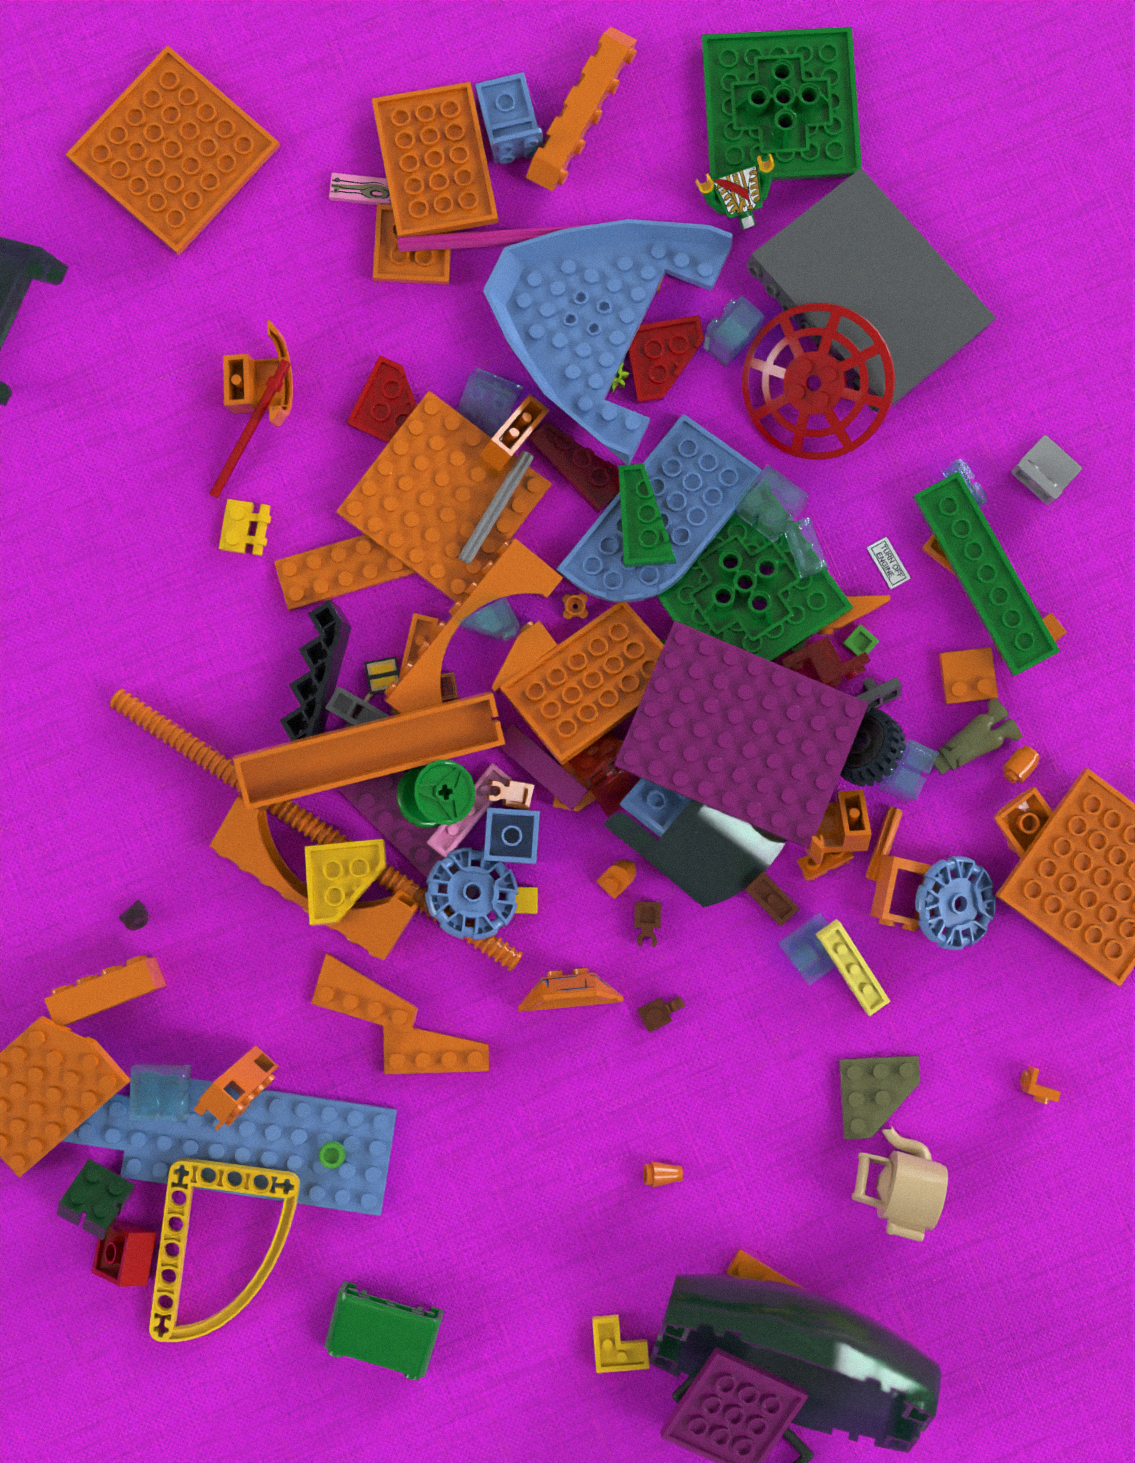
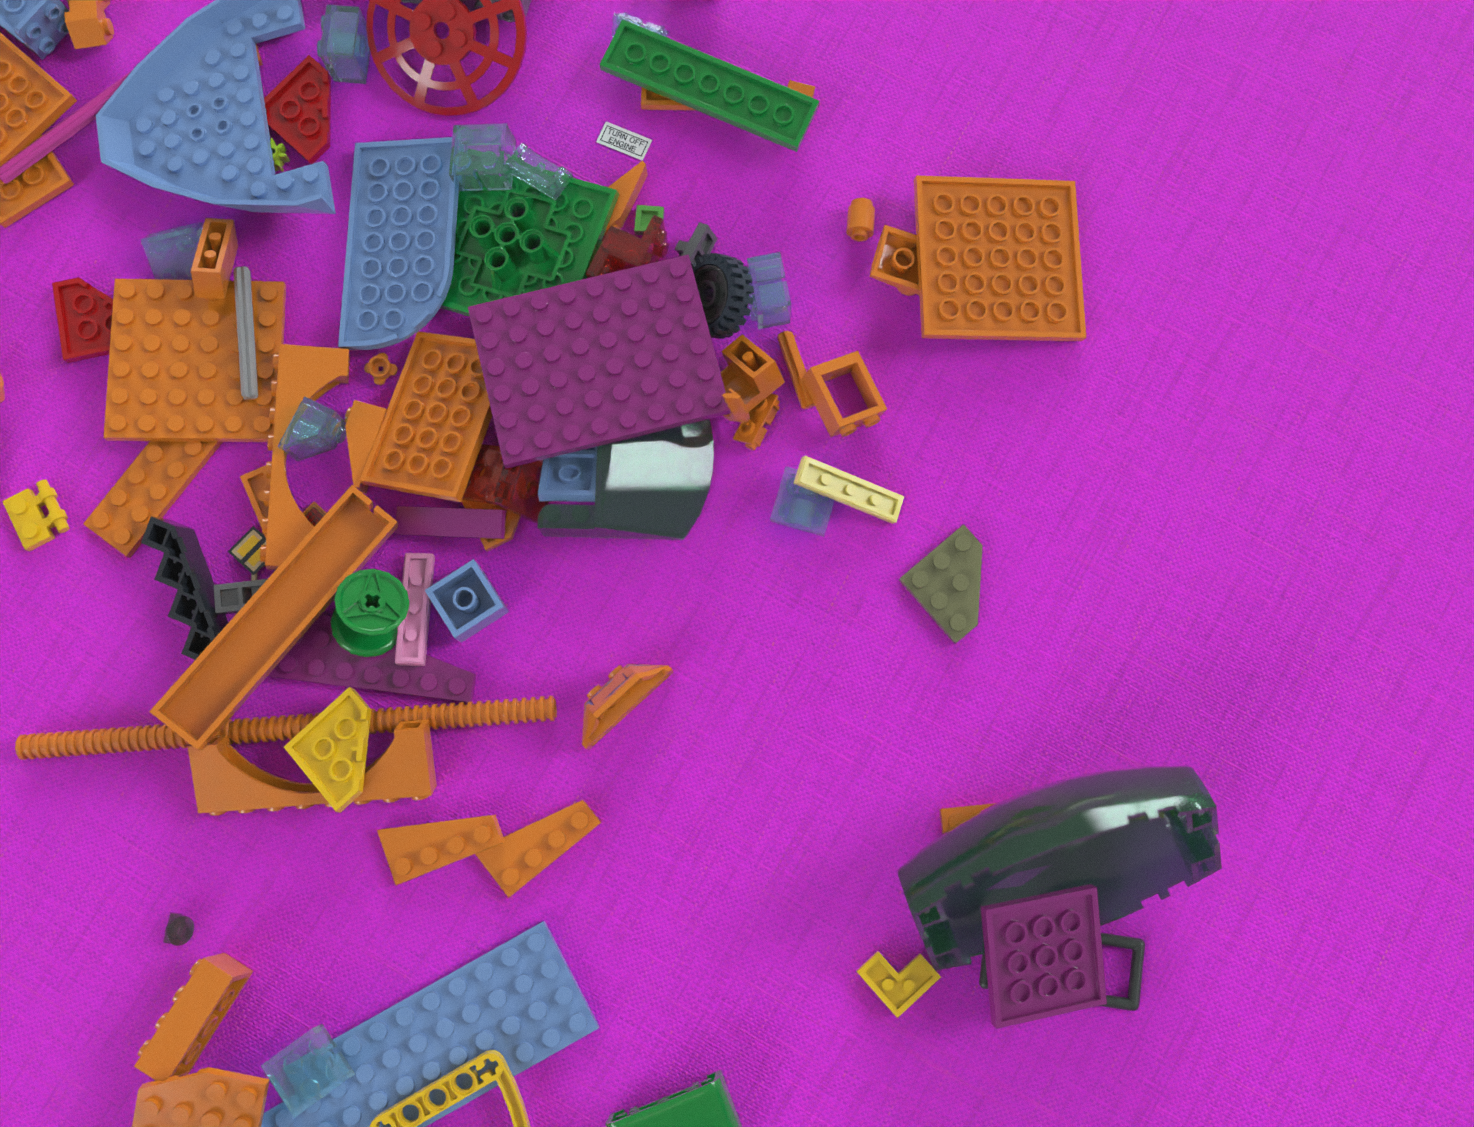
camera: 30 degrees left, 5 degrees down
(247, 1078) = (373, 1011): orange piece -> none
(332, 1154) = (512, 1006): bright green tile -> none
(465, 907) = (470, 692): medium blue plate -> none
(514, 794) = (441, 564): plate -> none
(527, 900) = (522, 650): yellow tile -> none
(583, 470) = (308, 252): dark red wing -> none
(618, 877) = (588, 568): orange plate -> none
(642, 524) = (386, 256): green wing -> none
(647, 916) = (641, 584): copper plate -> none
(656, 1013) = (712, 659): copper plate -> none
(660, 1174) = (821, 795): orange cone -> none
(771, 898) = (735, 486): copper plate -> none
(908, 1188) = (1041, 640): tan piece -> none
(943, 900) = (908, 356): medium blue plate -> none
(968, 675) = (761, 181): orange plate -> none
(977, 738) = (807, 224): olive piece -> none
(1041, 1093) = (1091, 475): orange bracket -> none

